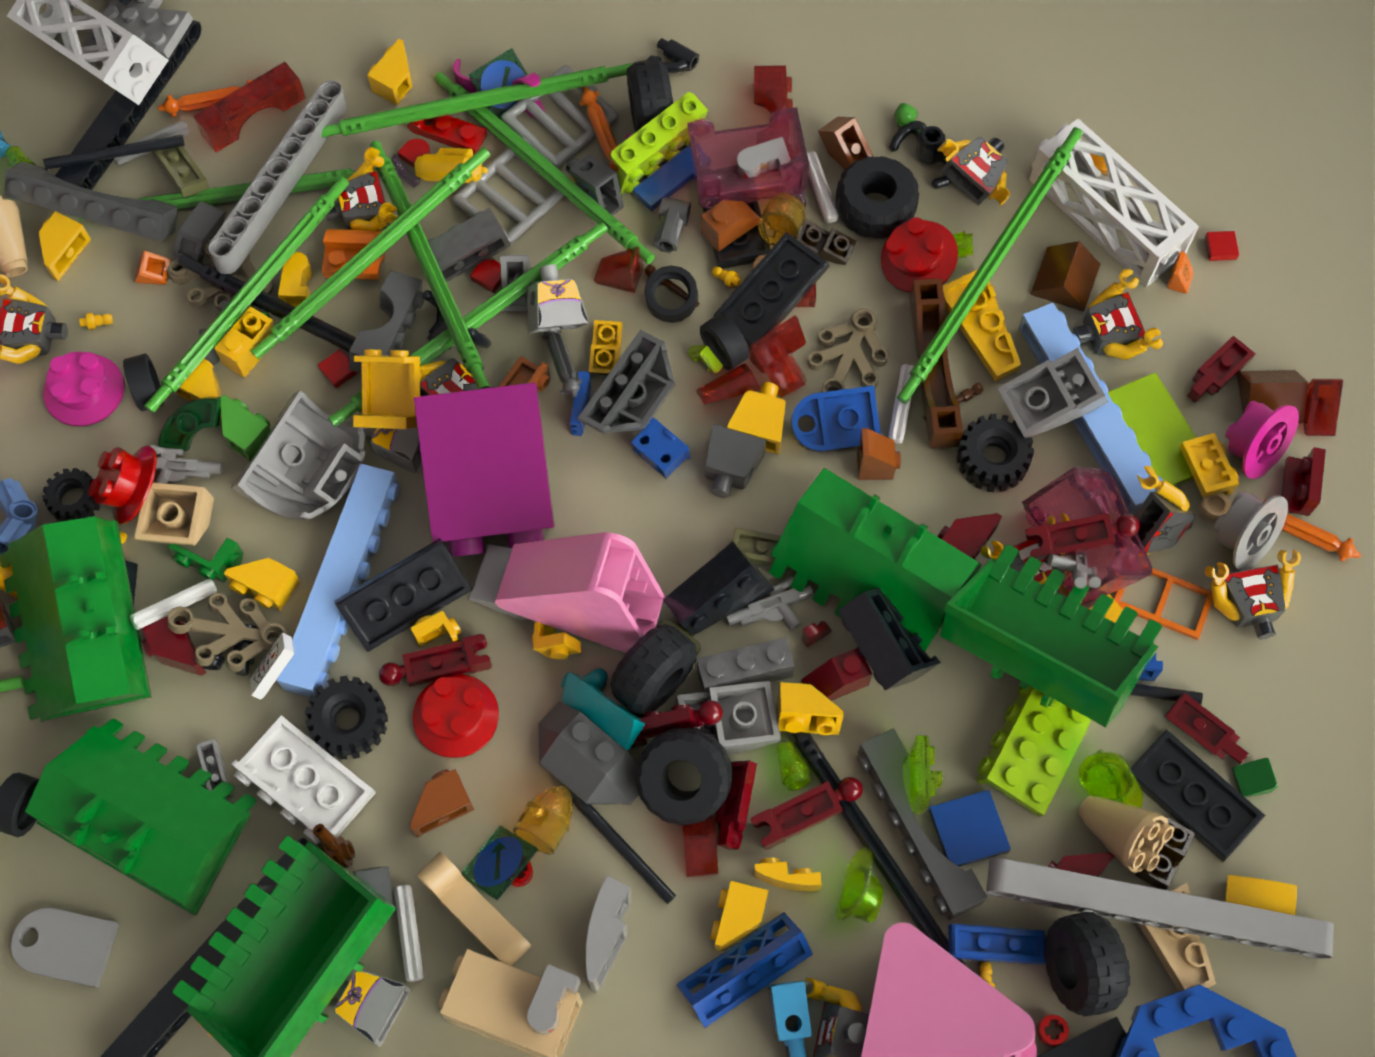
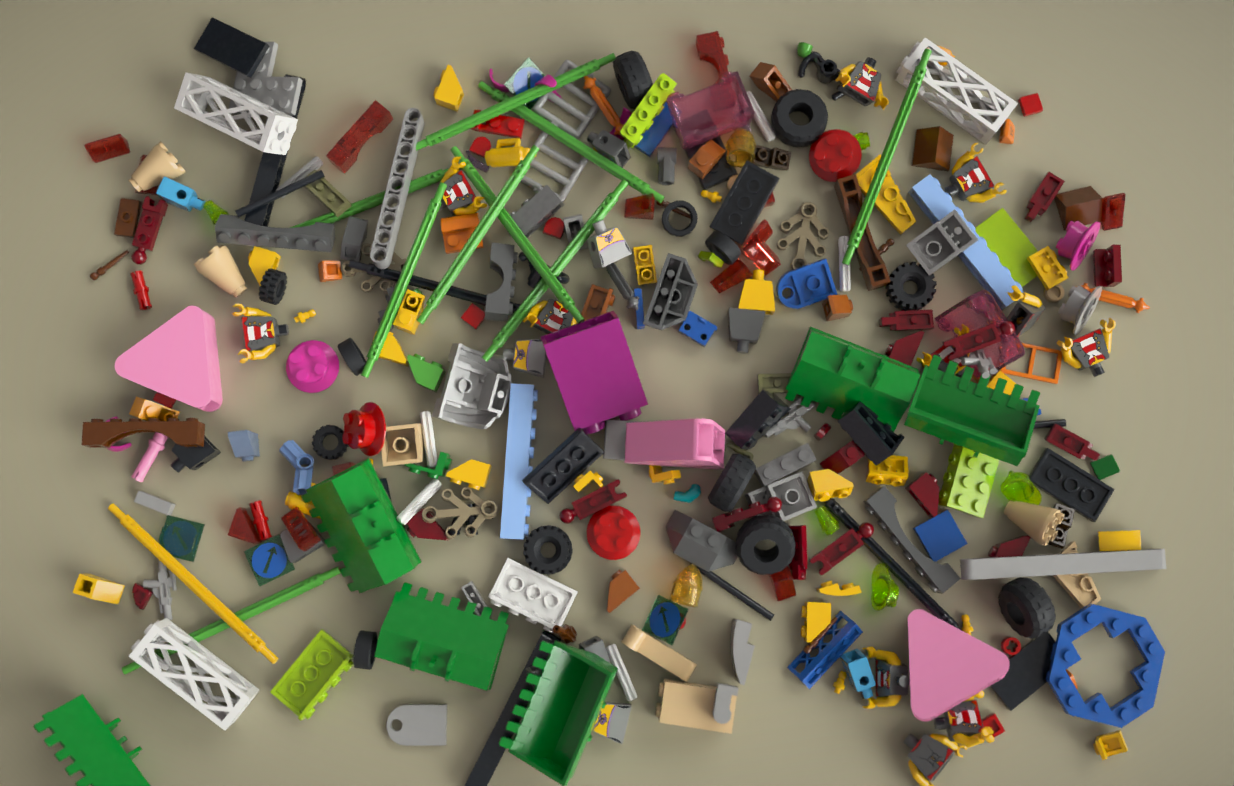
camera: 10 degrees left, 15 degrees up
(62, 268) = (273, 286): none -> black tyre
(176, 470) = (392, 409): light grey piece -> none
(188, 420) = (390, 376): dark green tile -> none
(195, 101) = (326, 136): orange wheel -> none
(218, 518) = (429, 440): none -> white axle
(271, 666) = (493, 529): white tile -> none
(294, 279) = (428, 262): yellow leg -> none
(388, 389) = (519, 335): yellow panel -> none
(602, 710) = (705, 514): teal slope -> none
(682, 56) = (643, 34): black plant -> none
(729, 950) = (808, 648): none -> reddish brown piece
(755, 1031) = (839, 684): none -> yellow piece
(762, 158) = (721, 109): light grey leg -> none
(905, 710) = (890, 471): none -> yellow bracket
(922, 780) = (907, 512): clear neon green hinge -> none
(957, 755) = (925, 493): none -> dark red slope
(982, 499) = (908, 320): none -> dark red hinge
(996, 944) = (969, 603): blue tile -> none

